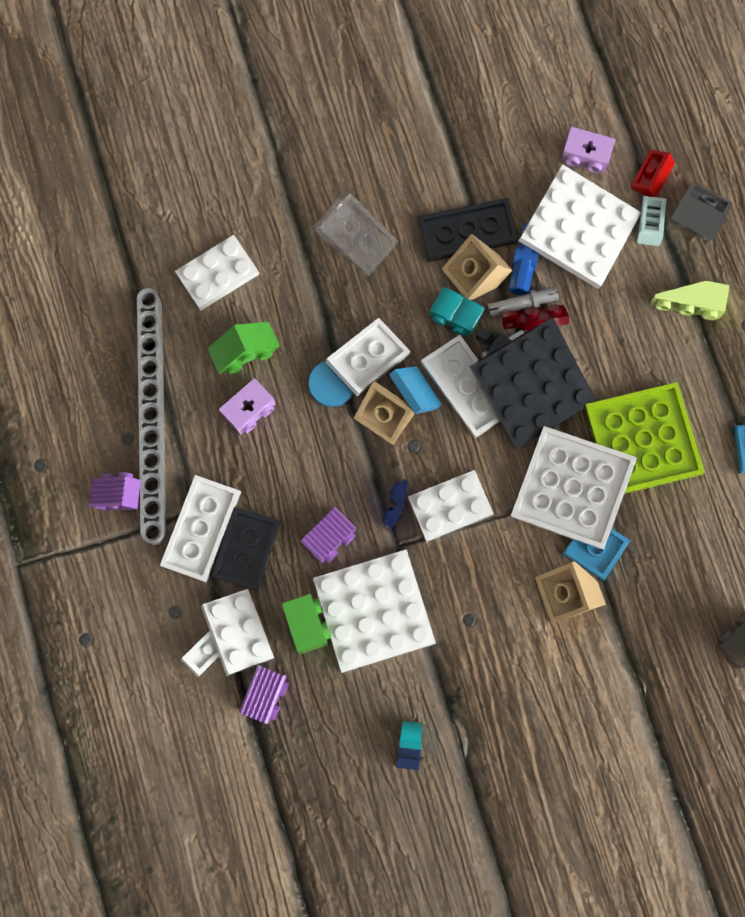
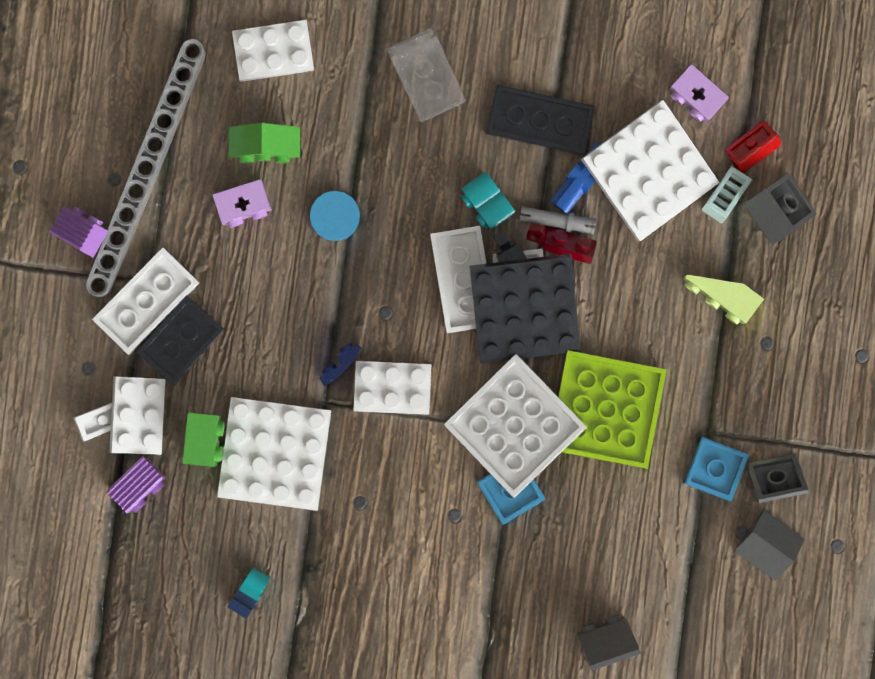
camera: 20 degrees right, 10 degrees up
(329, 536) = (263, 364): medium lavender brick -> none
(367, 356) = (380, 207): white plate -> none
(384, 413) = (369, 270): tan slope -> none
(415, 389) = (410, 262): dark azure tile -> none
(476, 268) = (527, 166): tan slope -> none
(569, 592) = (463, 521): tan slope -> none

